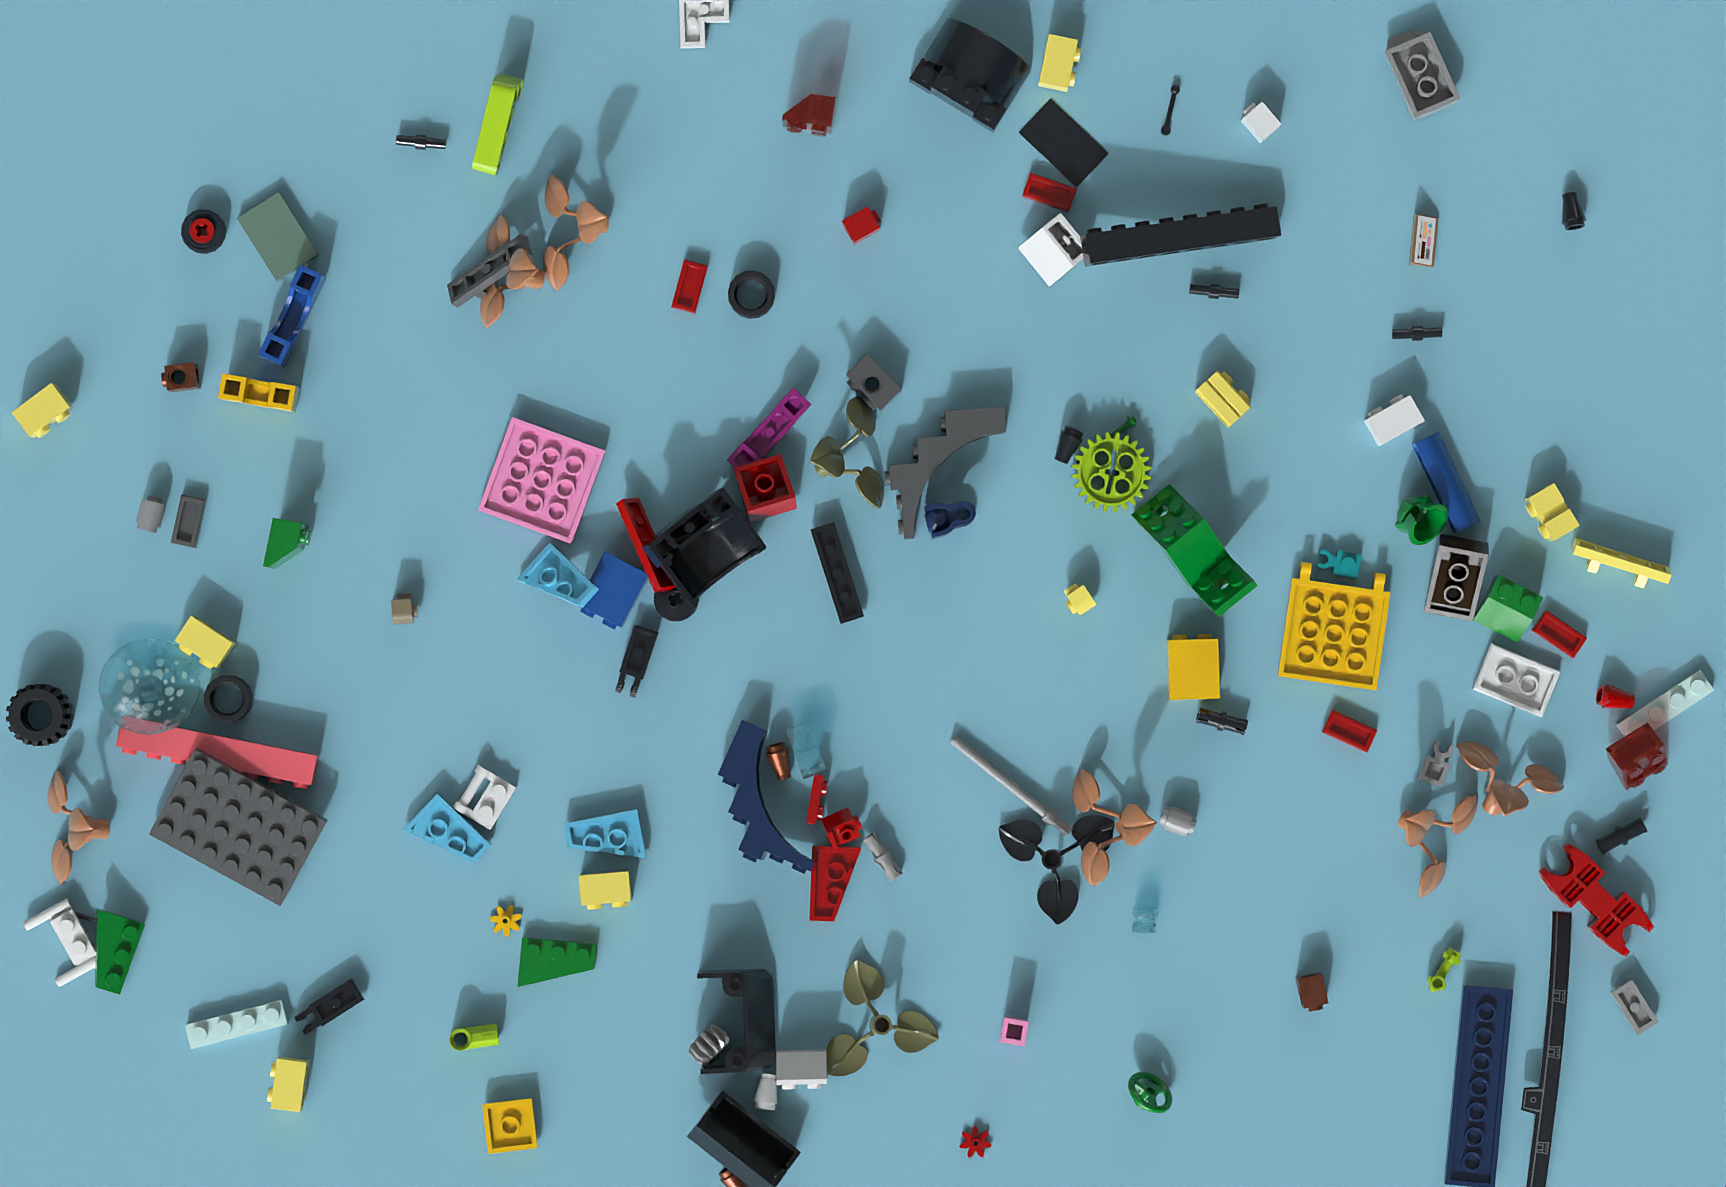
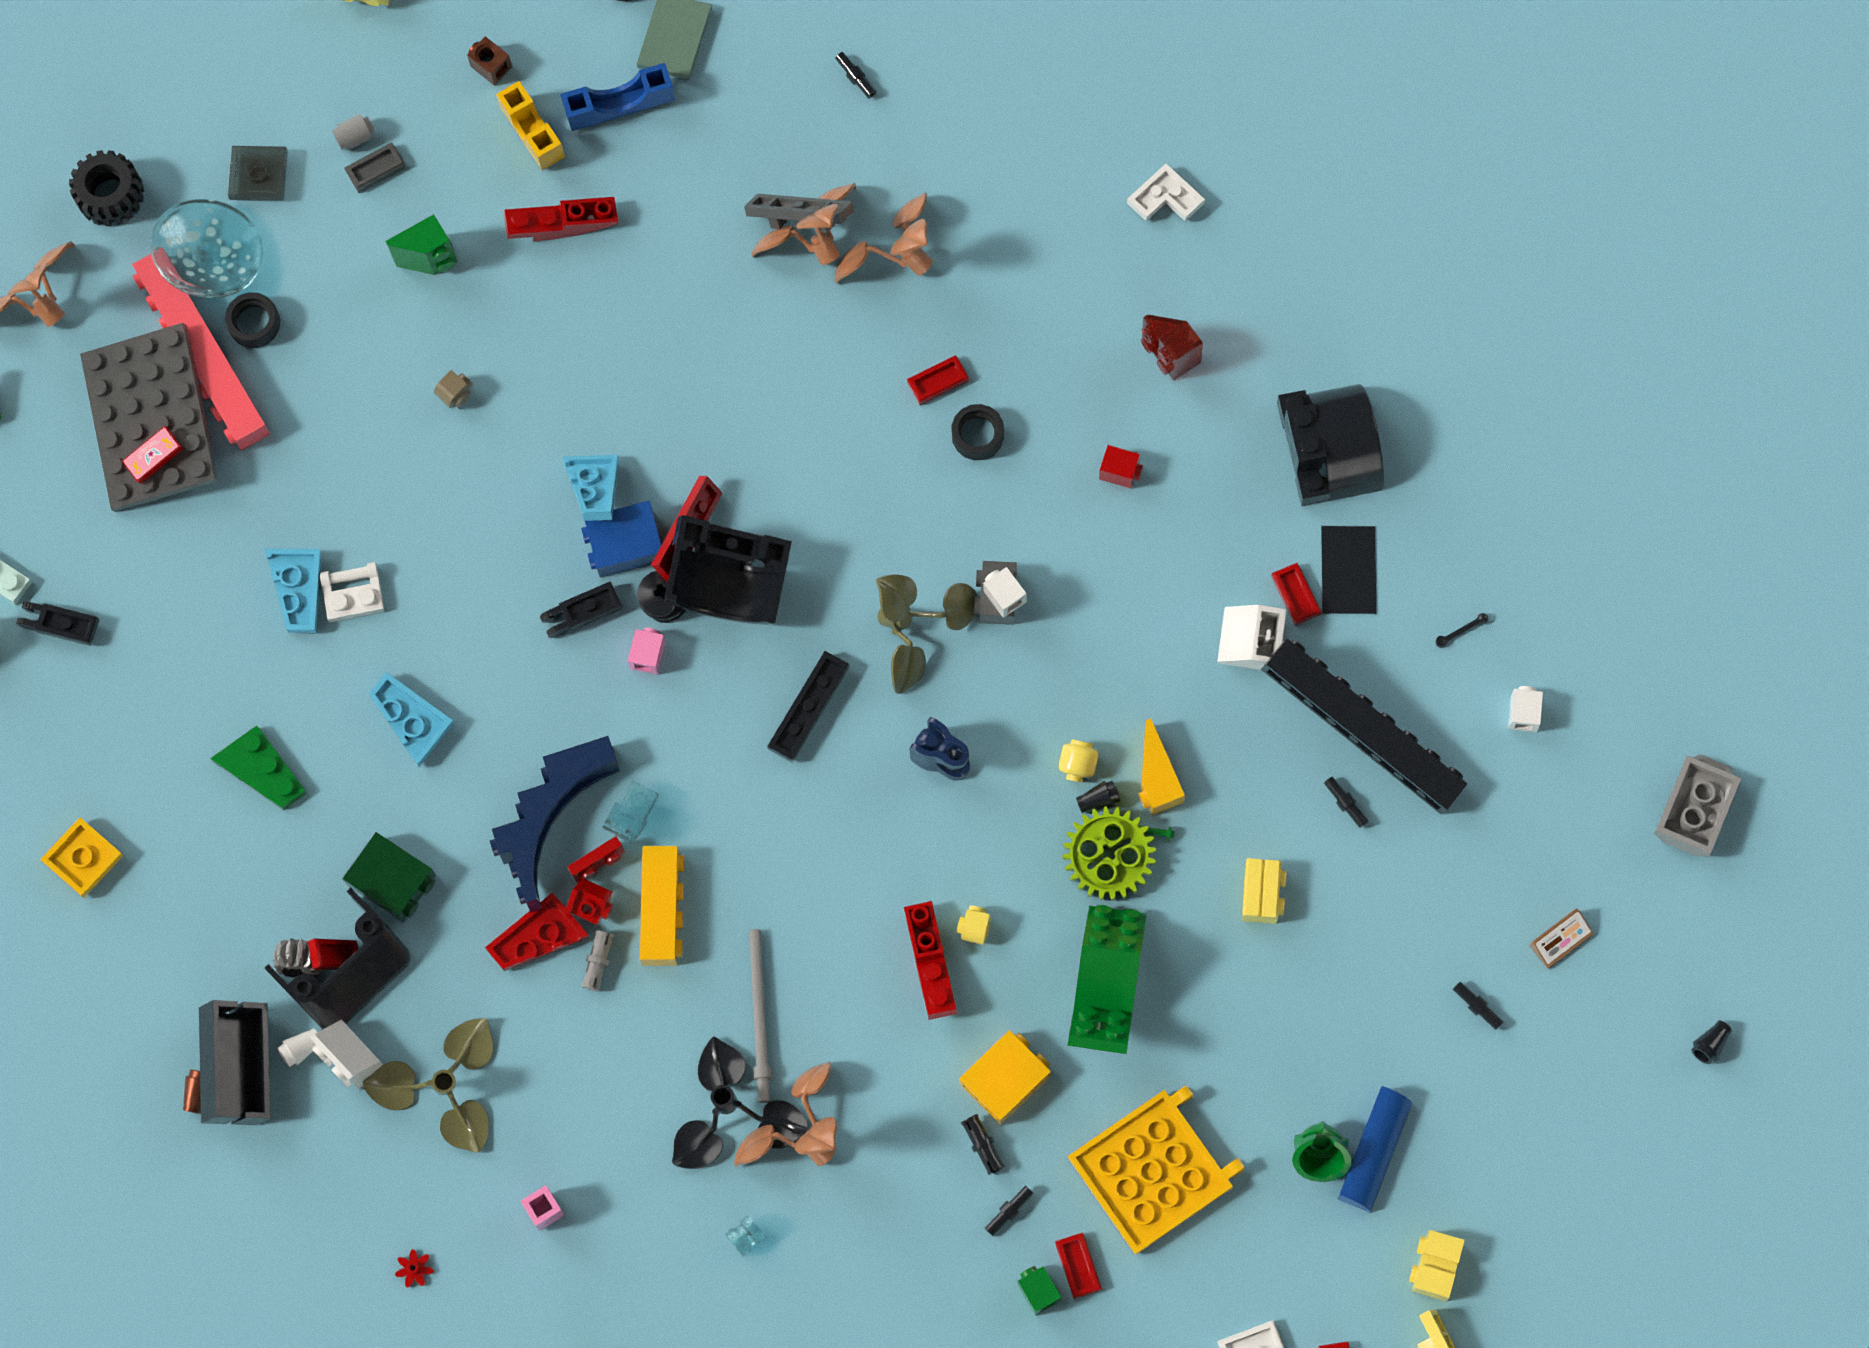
camera: 55 degrees right, 15 degrees down
(120, 603) = (257, 173): none -> clear smoke plate
(204, 642) = (283, 262): light yellow brick -> none
(272, 848) = (152, 454): none -> tile
(345, 431) = (562, 220): none -> red slope
(477, 1036) = (135, 761): lime piece -> none
(496, 123) = (926, 112): lime beam -> none
(505, 915) = (262, 705): yellow plant -> none
(541, 480) = (664, 404): bright pink plate -> none
(605, 888) = (360, 754): light yellow brick -> none
(703, 642) = (647, 651): none -> bright pink brick
(706, 940) = (390, 877): none -> dark green brick
(727, 1020) = (330, 953): none -> red tile
(765, 488) = (824, 583): red slope -> none
(771, 429) = (875, 548): magenta slope -> none
(779, 759) = (602, 801): copper cone -> none
(882, 381) = (1004, 591): none -> white brick
(883, 785) = (661, 906): none -> yellow brick
(960, 429) = (945, 696): dark grey arch -> none
(1032, 434) = (1078, 760): none -> light yellow head
(1058, 63) = (1409, 501): light yellow brick -> none
(1076, 648) = (930, 960): none -> red slope
(1088, 394) = (1159, 782): none -> yellow slope
(1178, 821) = (859, 1185): light grey brick -> none
(1277, 742) = (1009, 1210): none -> black bar
(1343, 769) = (1038, 1289): none -> green brick
(1344, 563) = (1220, 1125): teal plate -> none
(1394, 420) = (1384, 1052): white brick -> none
(1456, 577) = (1301, 1233): dark brown slope -> none
(1507, 608) = (1317, 1304): green slope -> none

